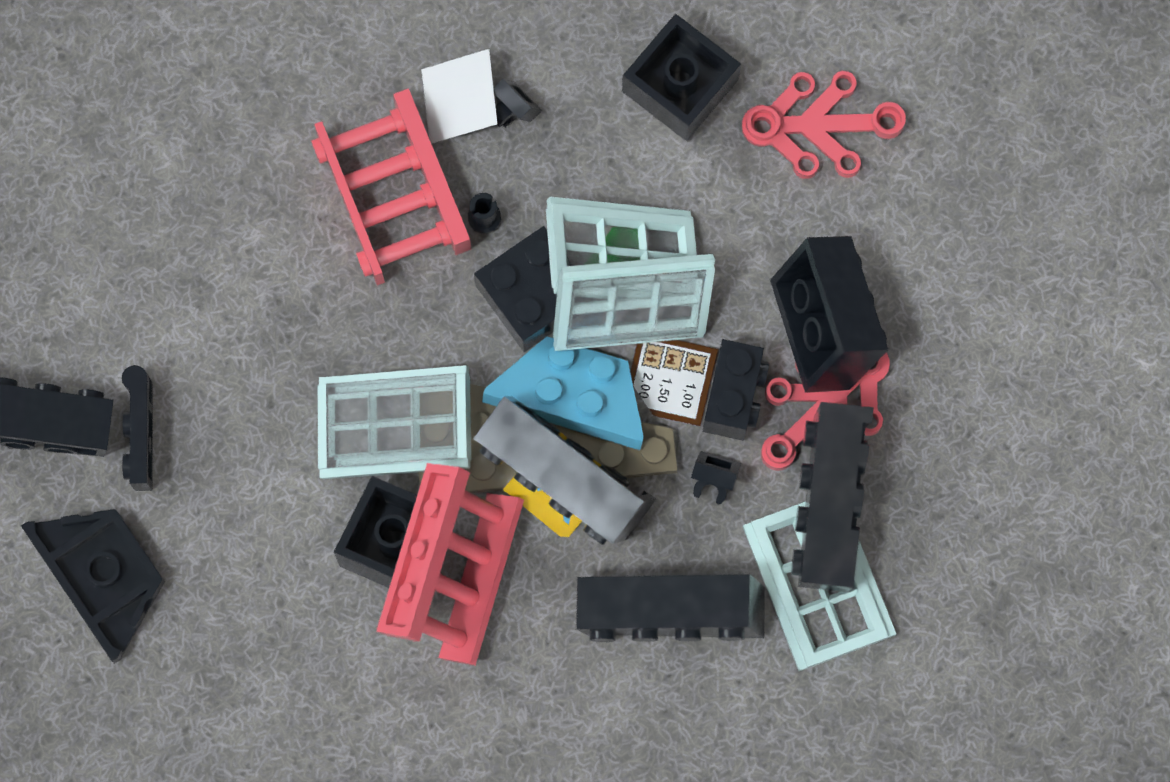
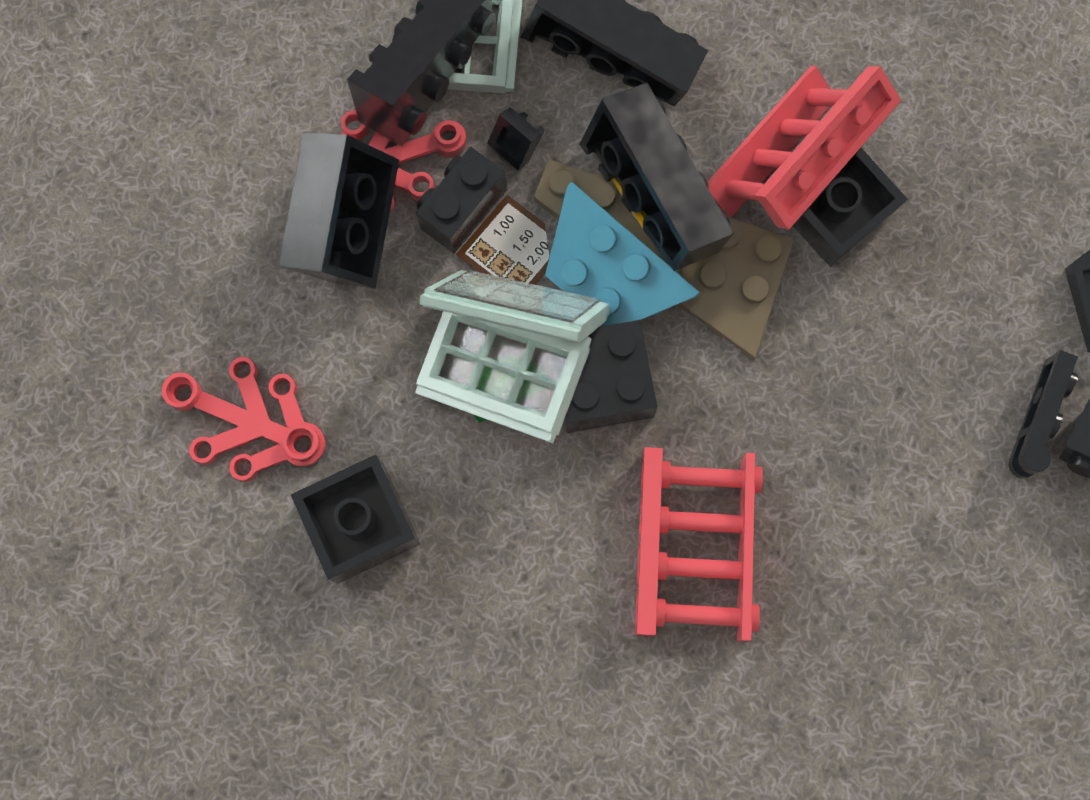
camera: 150 degrees left, 0 degrees up
(394, 422) = (792, 310): clear piece -> none
(459, 96) = (585, 608): white sticker -> none
(484, 222) = (613, 486): black pin -> none
(513, 104) = (533, 576): black tile -> none

